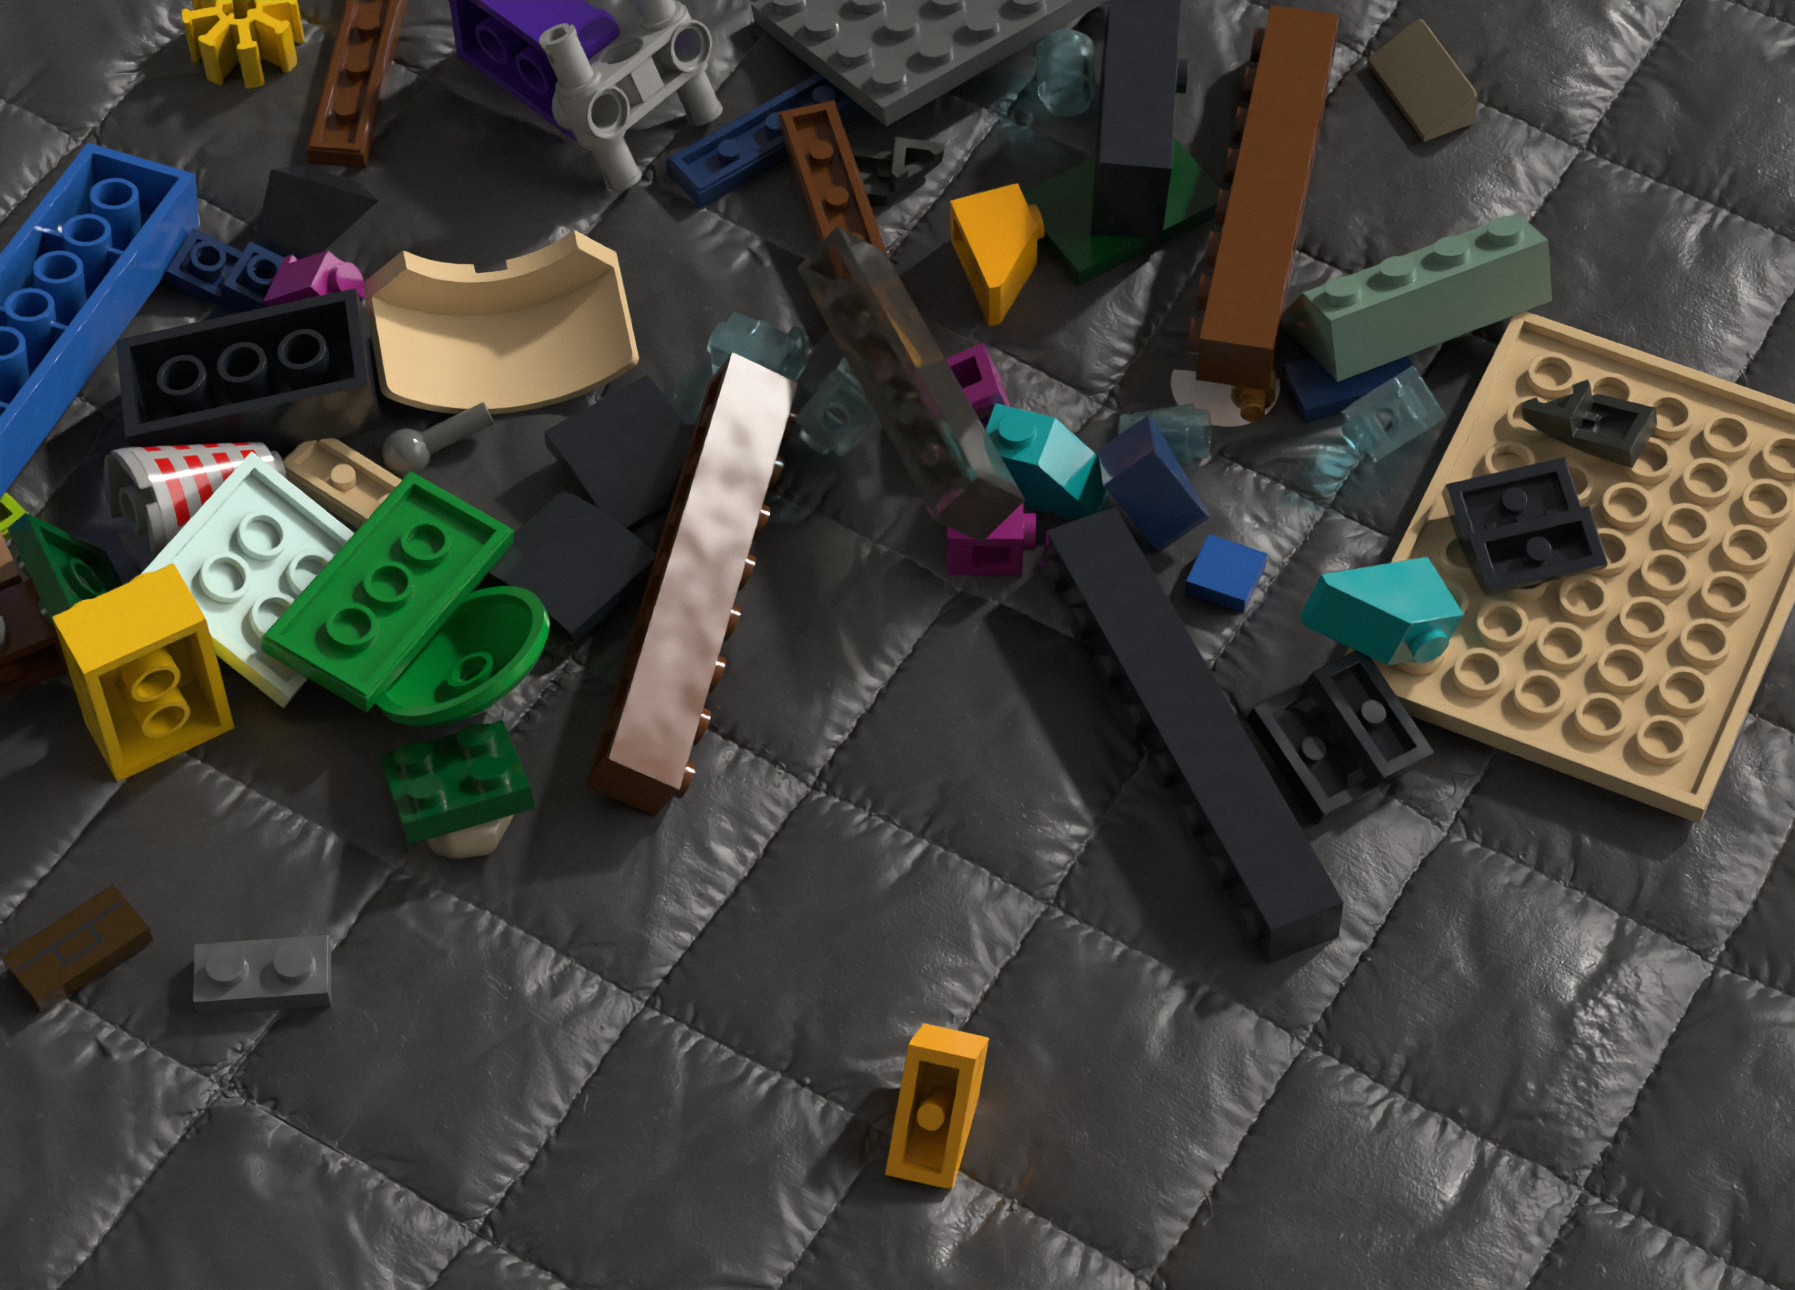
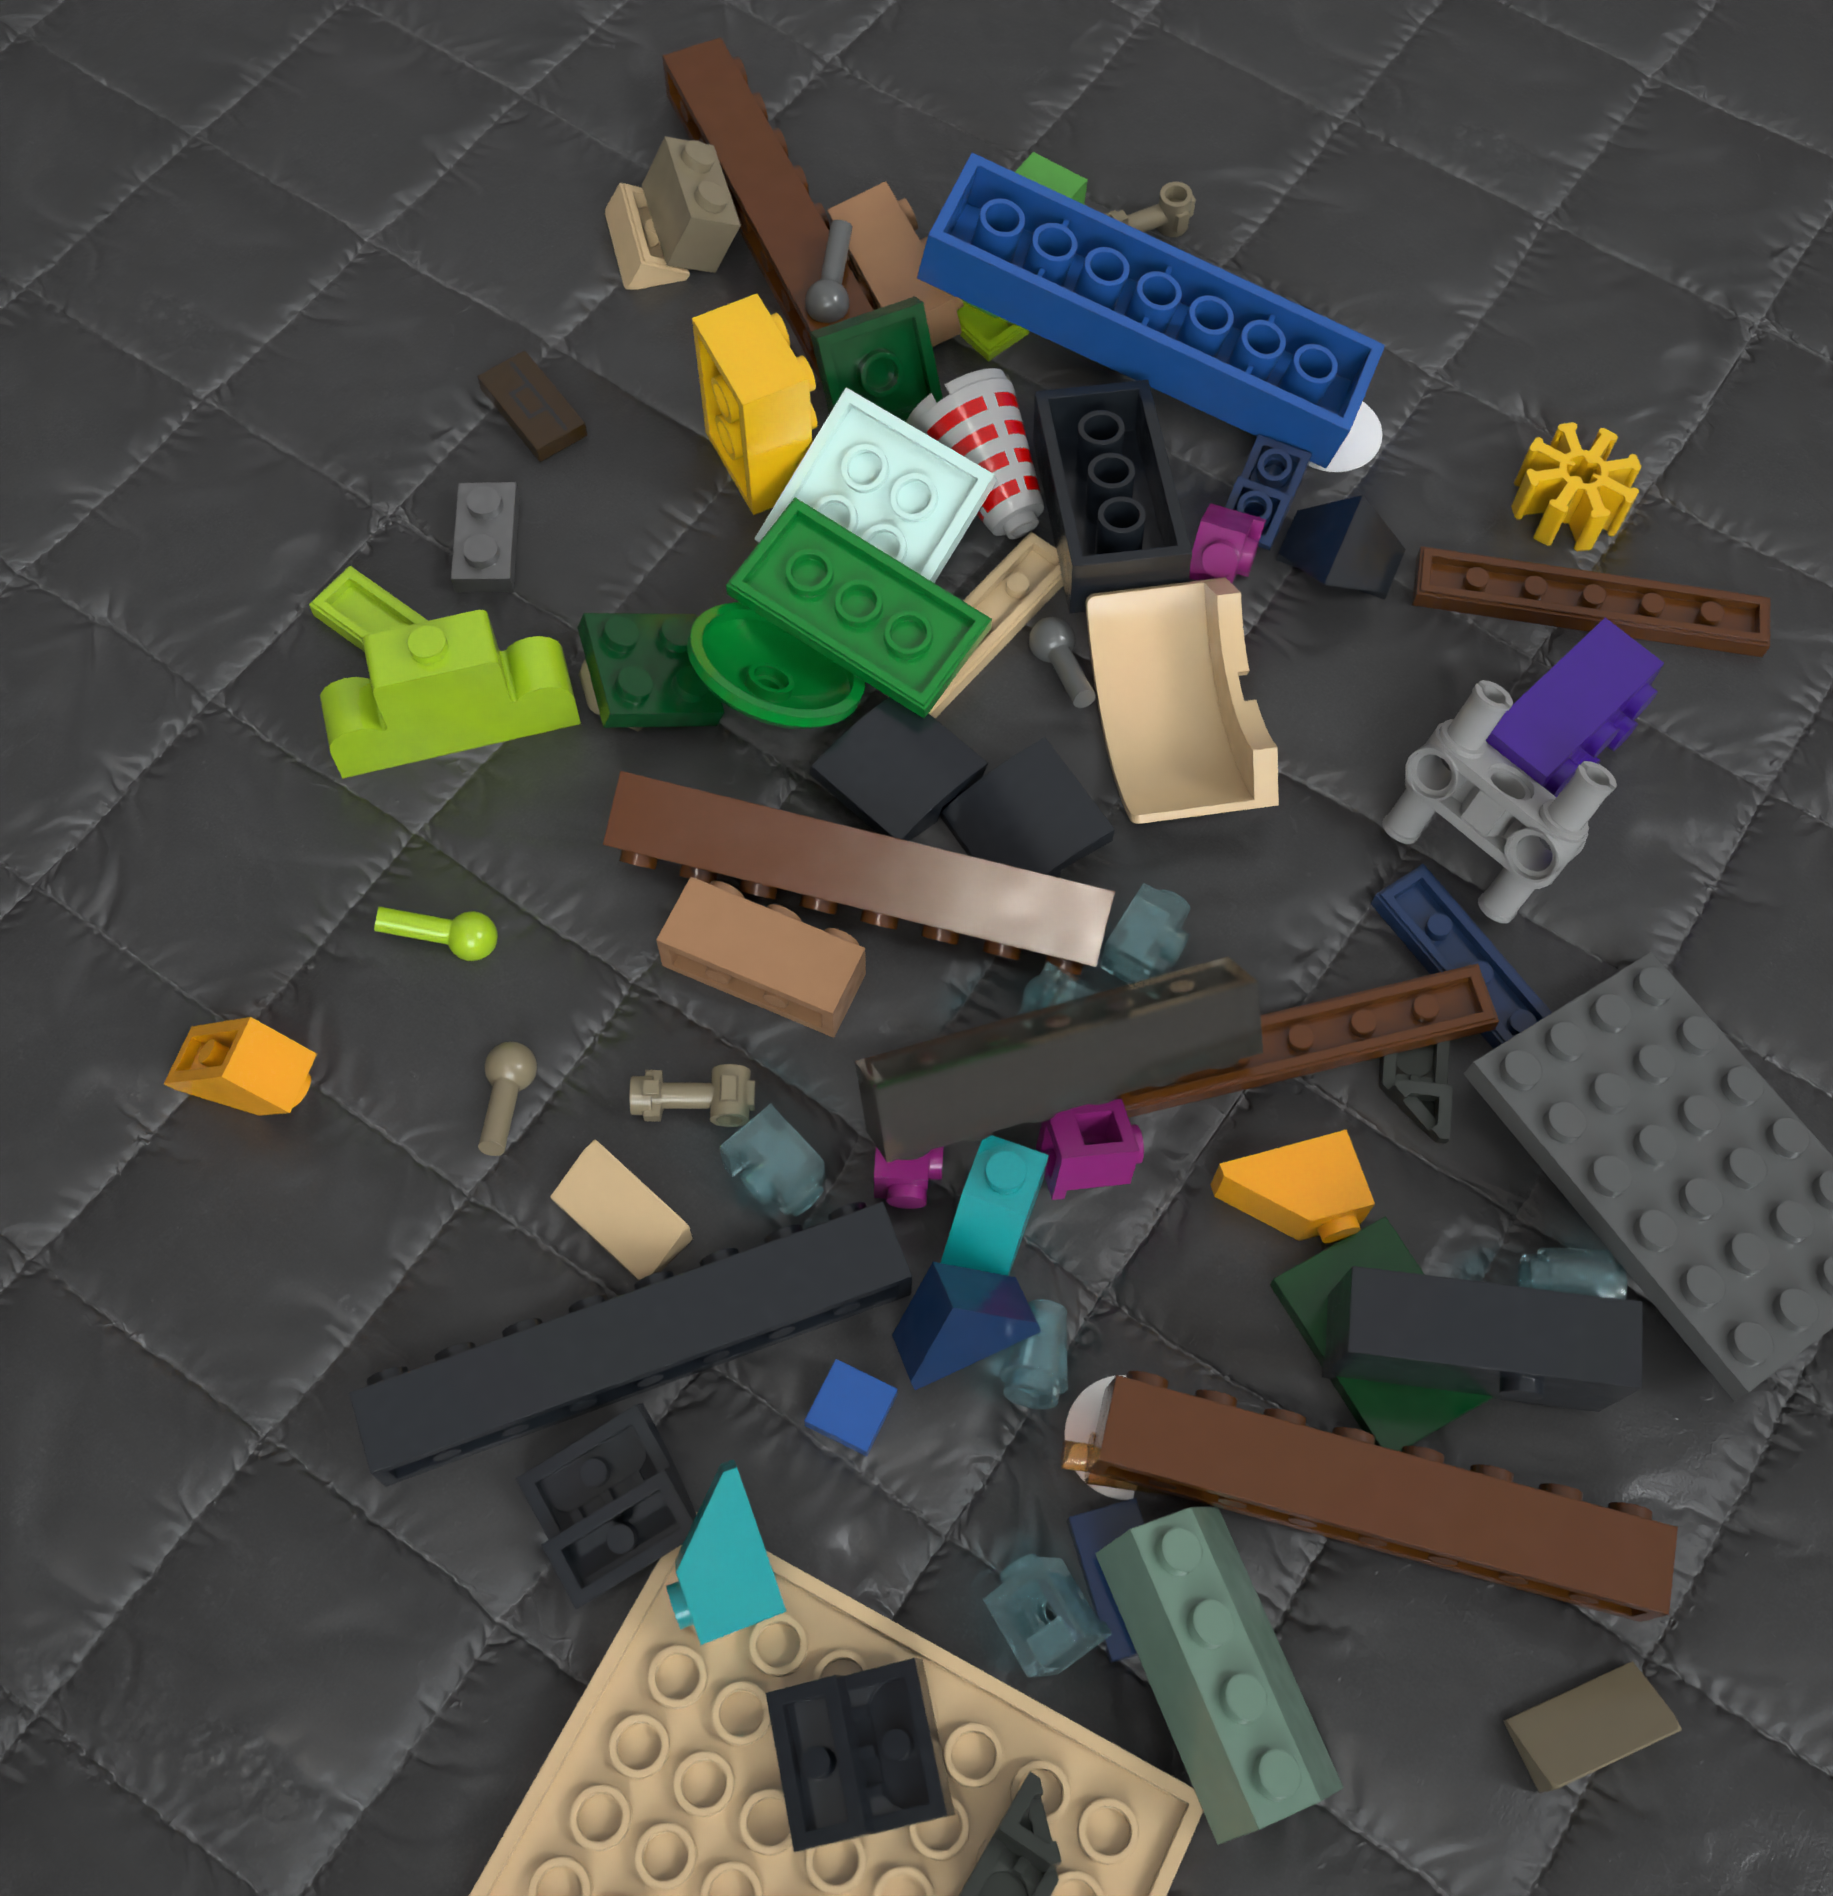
camera: 90 degrees right, 10 degrees up
(374, 1073) = (360, 607): none -> lime tile
(507, 964) = (444, 692): none -> lime brick
(765, 934) = (468, 935): none -> lime bar
(787, 660) = (762, 955): none -> medium nougat brick
(915, 879) = (509, 1070): none -> dark tan bar
(937, 683) = (727, 1096): none -> dark tan bar
(1003, 634) = (775, 1163): none -> clear light blue brick
(1059, 761) = (621, 1212): none -> tan slope

